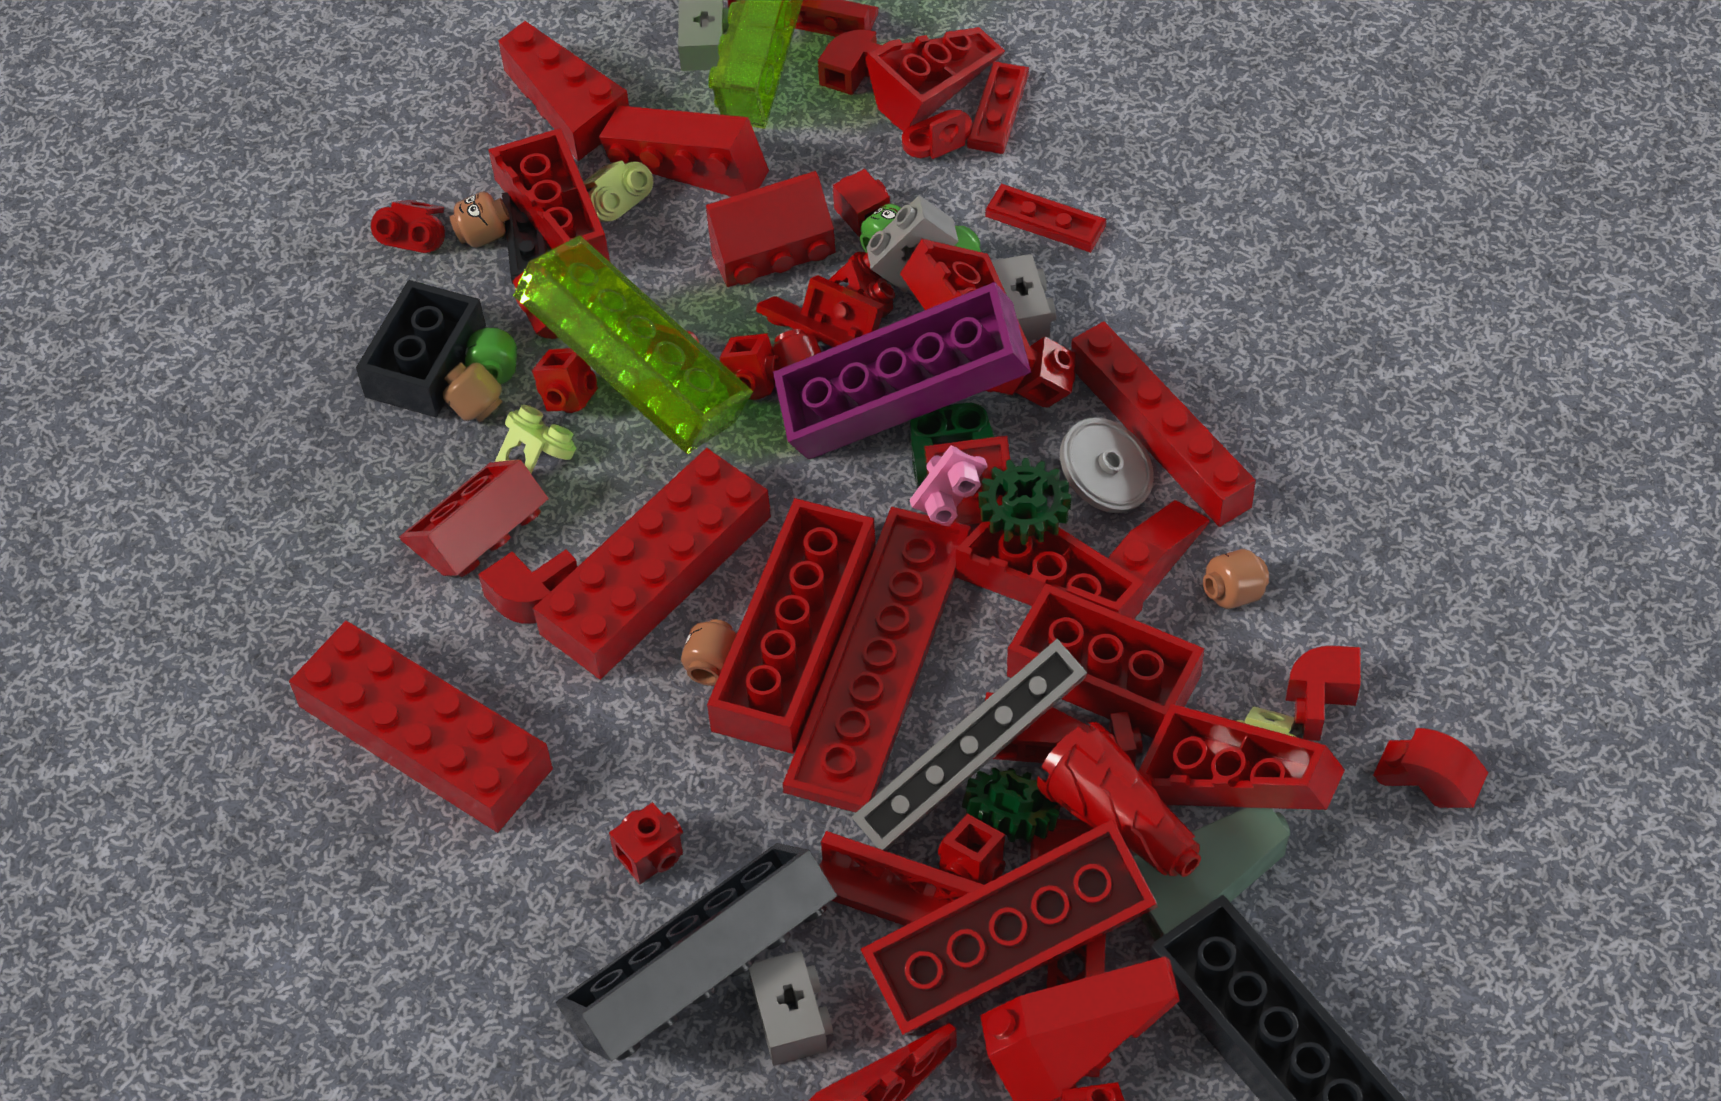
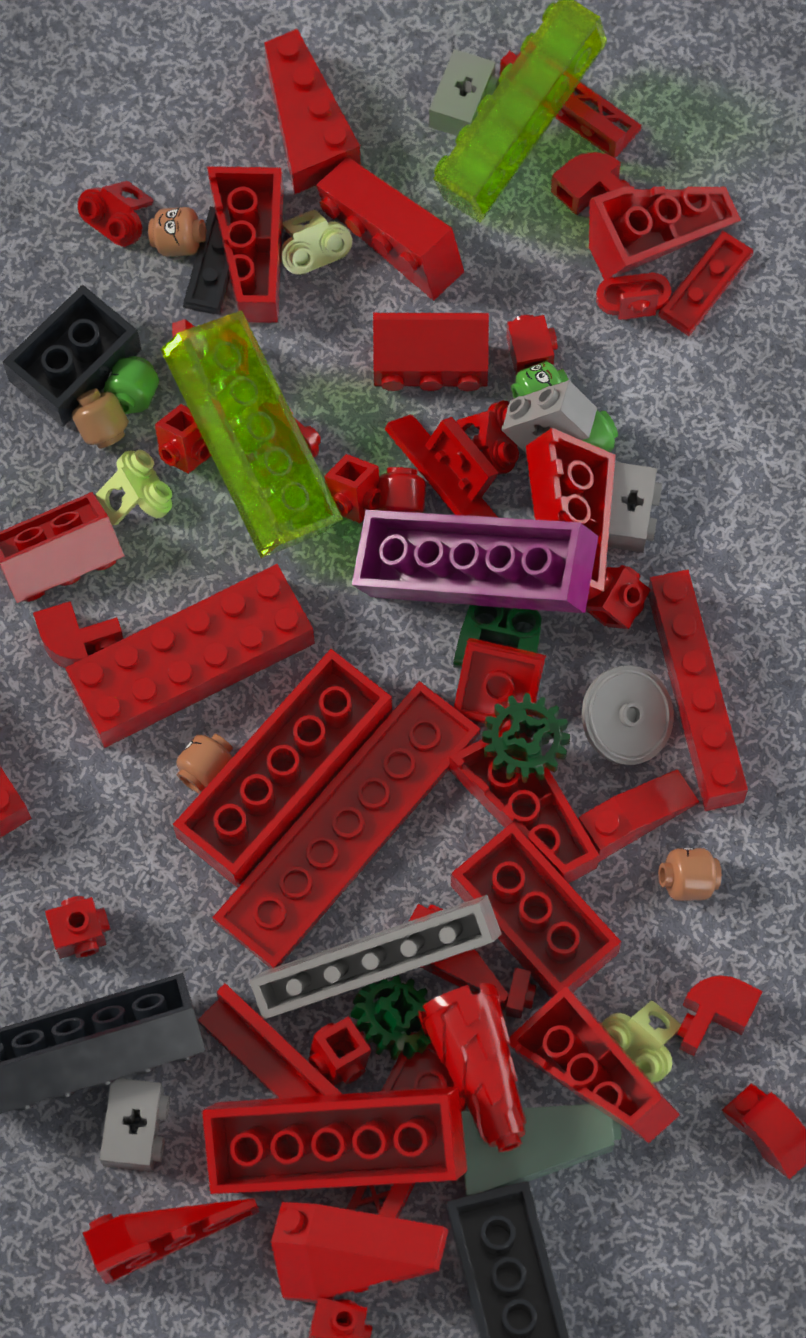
camera: 20 degrees right, 15 degrees up
(948, 482) = (468, 689): bright pink hips -> none
(1045, 217) = (695, 424): red tile -> none

